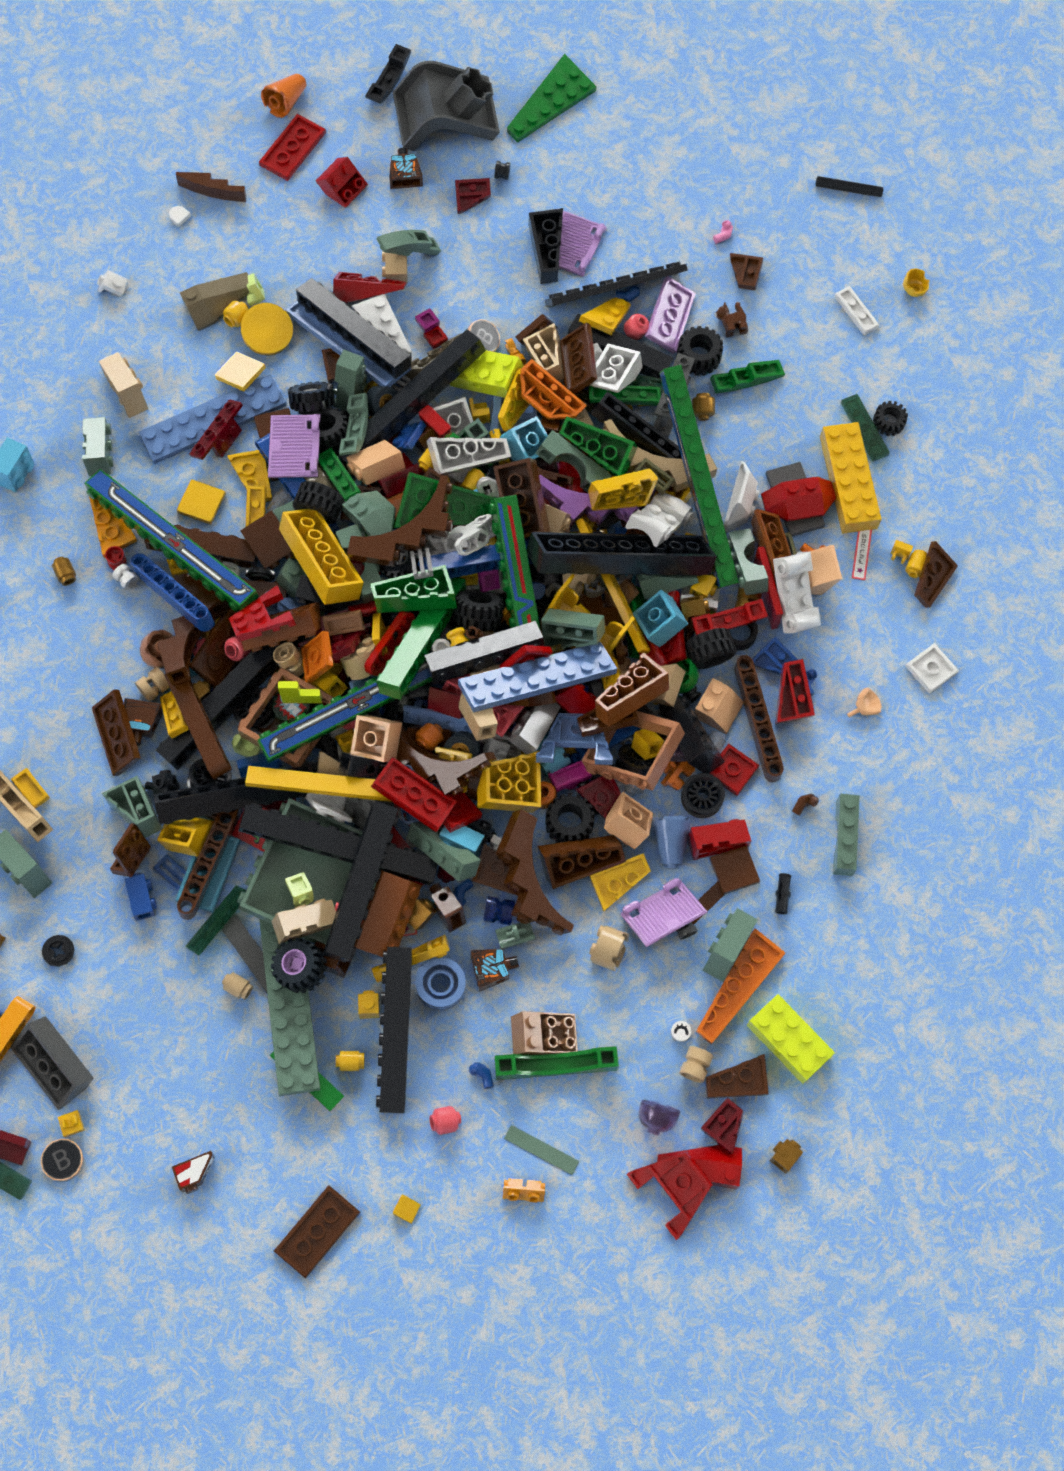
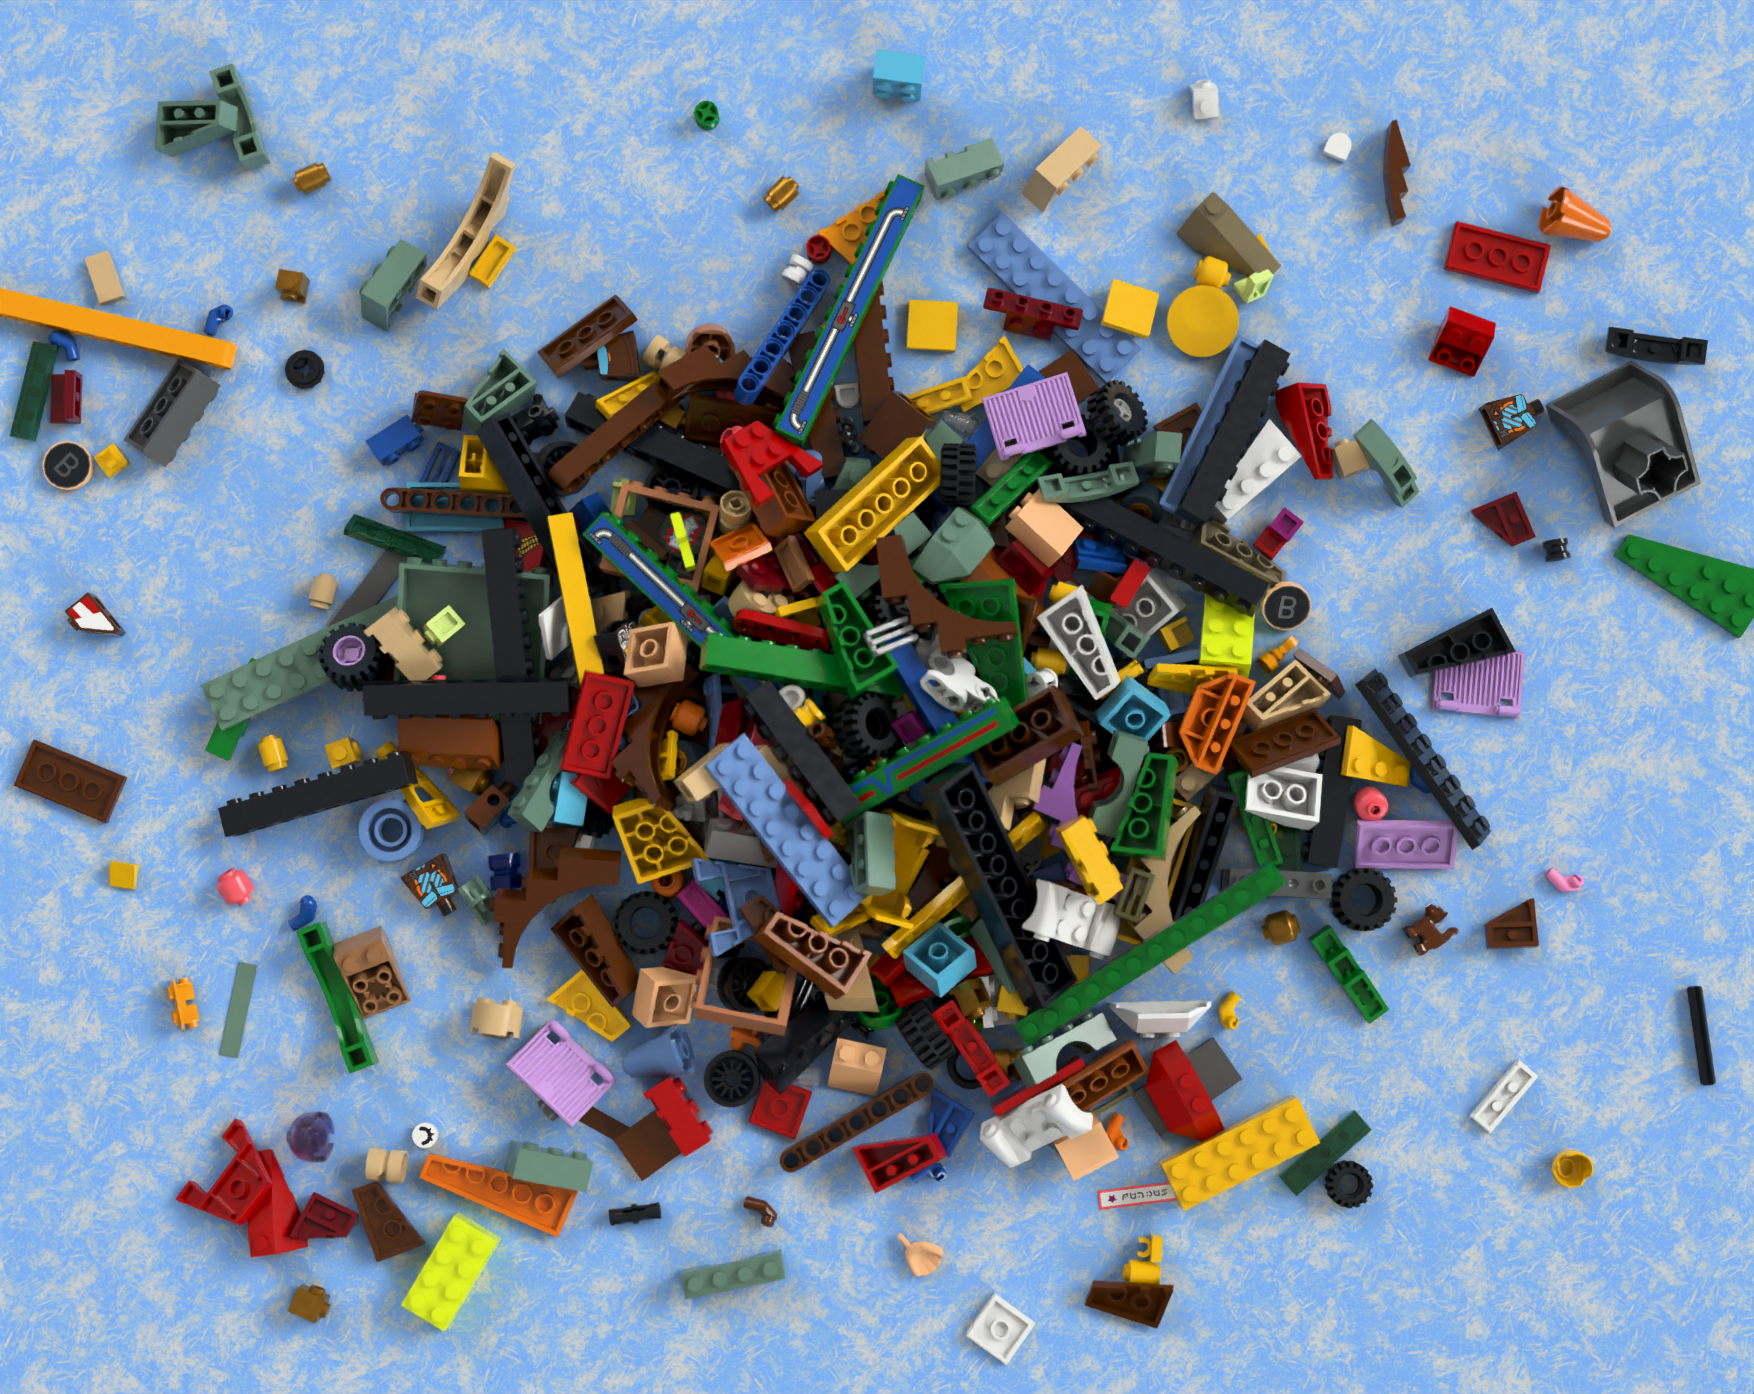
camera: 75 degrees right, 15 degrees up
(756, 458) = (1227, 1013): none -> yellow arm

